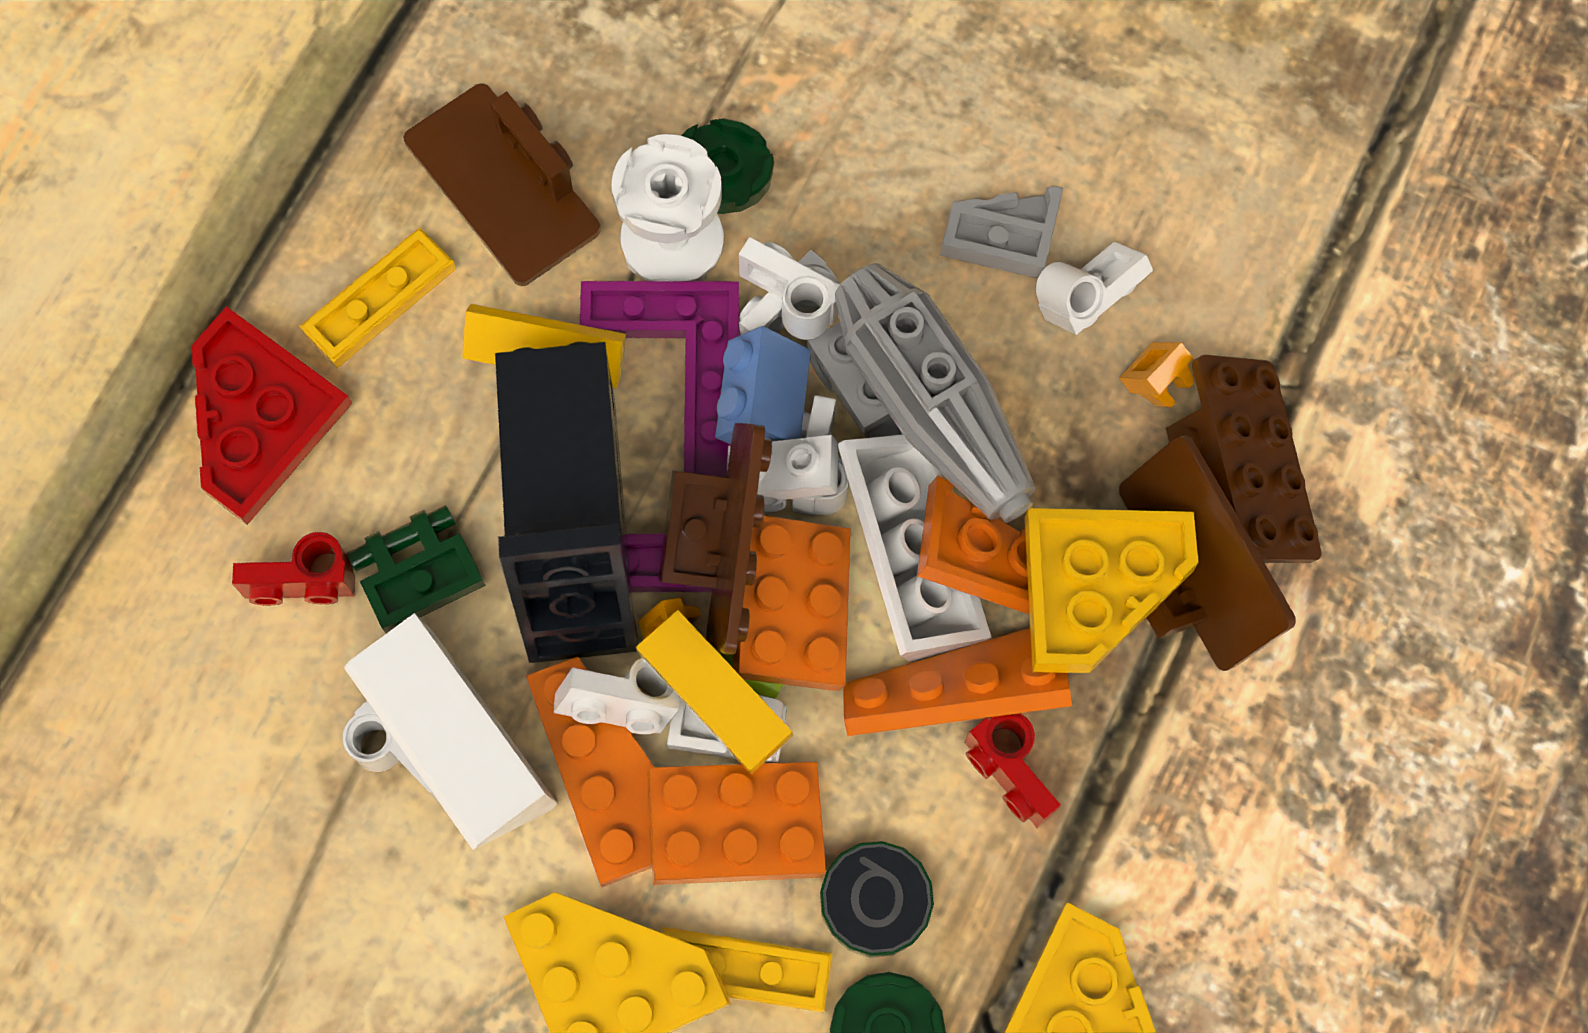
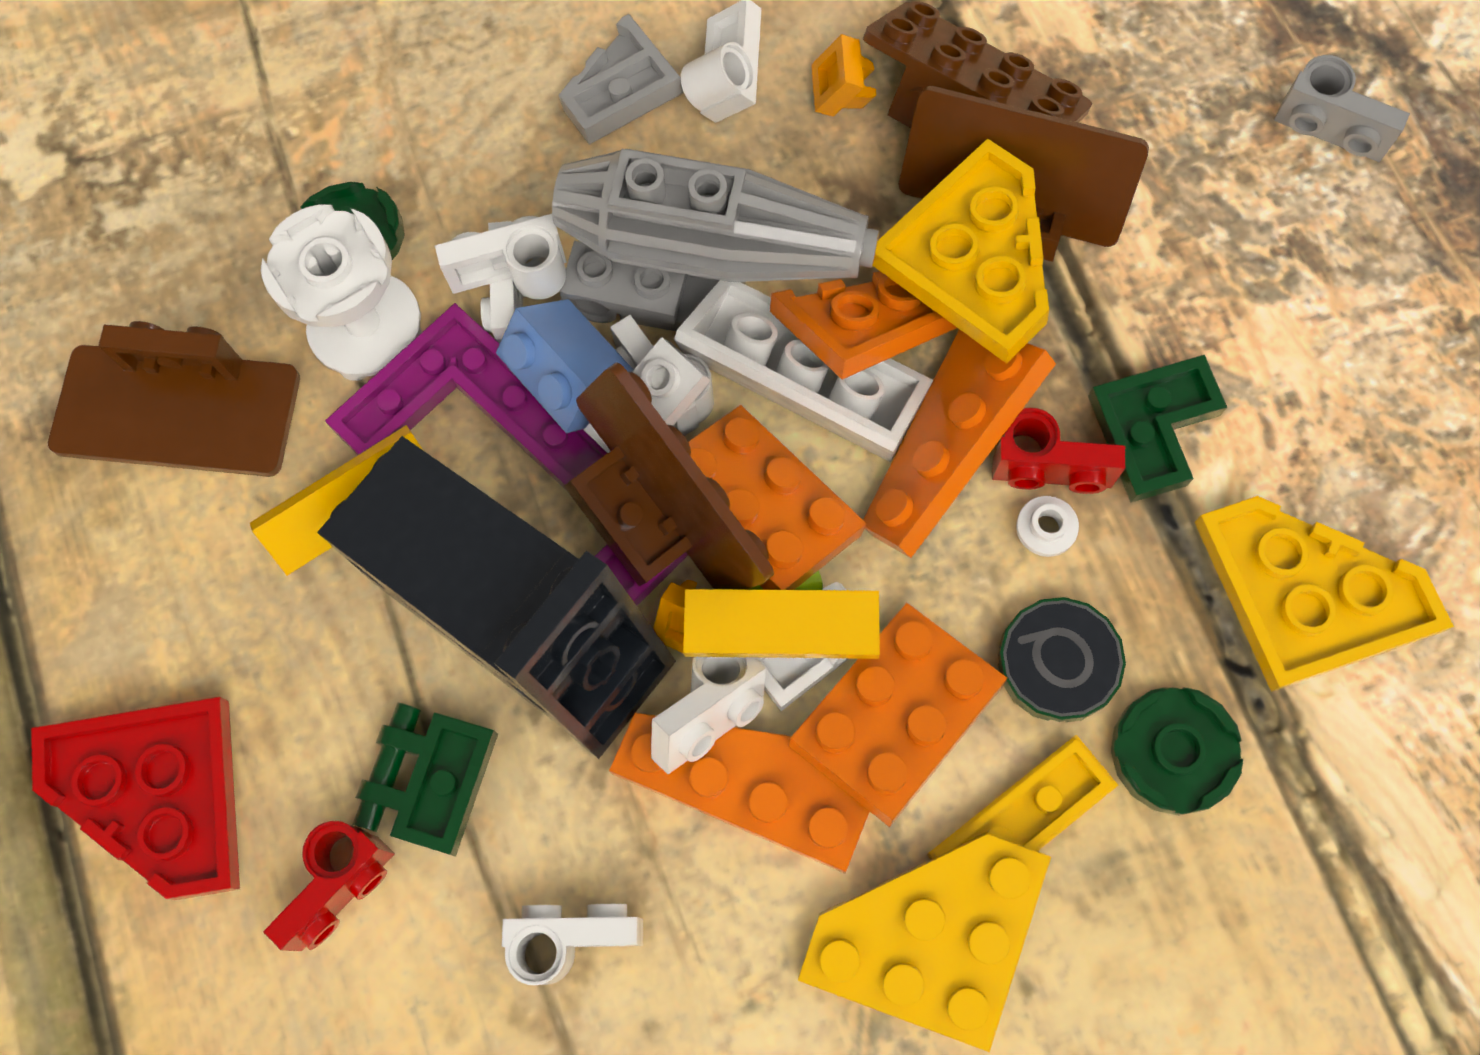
camera: 40 degrees left, 0 degrees up
(378, 297) = (161, 598): yellow tile -> none
(449, 733) = (598, 881): white slope -> none
(953, 822) = (1042, 542): none -> white plate
(1105, 799) = (1143, 416): none -> dark green plate
(1489, 759) = (1328, 109): none -> light grey plate

